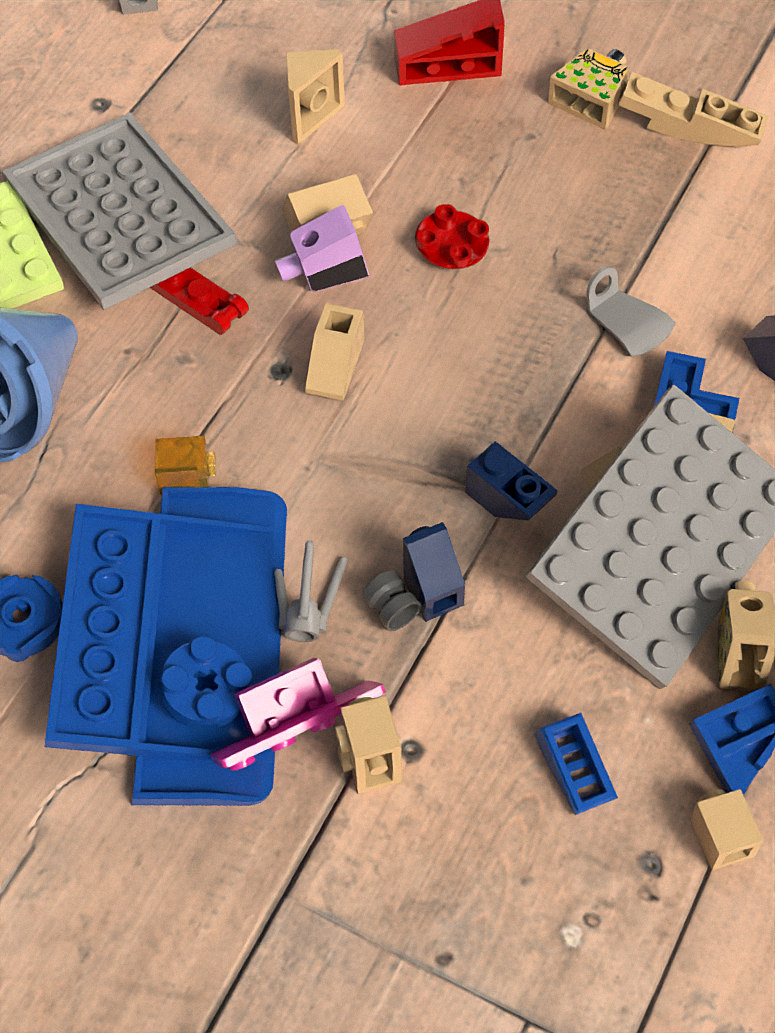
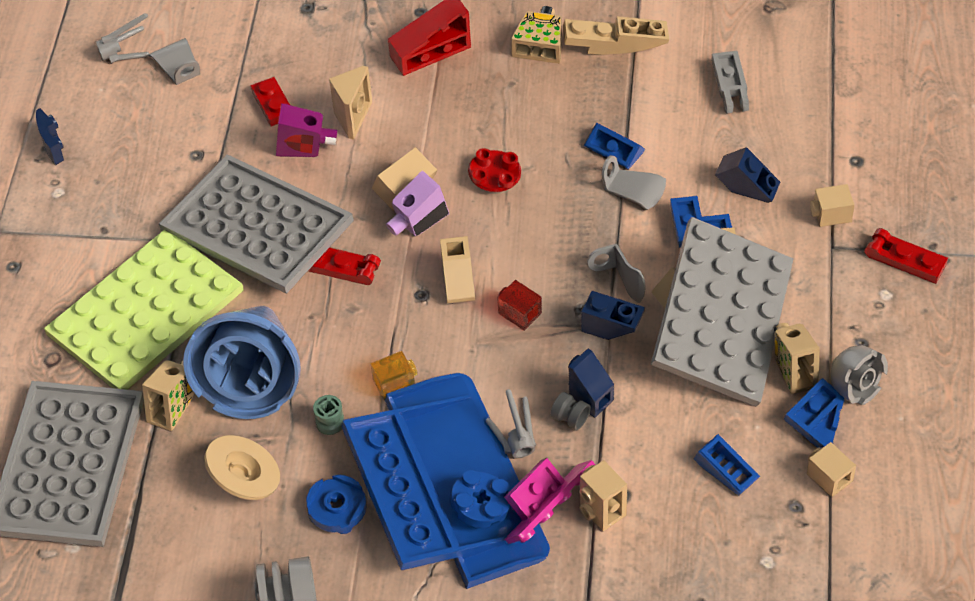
camera: 20 degrees left, 5 degrees down
(72, 486) = (328, 414): none -> sand green wheel
(222, 67) = (269, 98): none -> red plate
(229, 112) = (301, 132): none -> magenta torso
(395, 427) = (519, 304): none -> clear red brick
(564, 447) = (631, 277): none -> light grey piece
(622, 252) = (611, 143): none -> blue slope

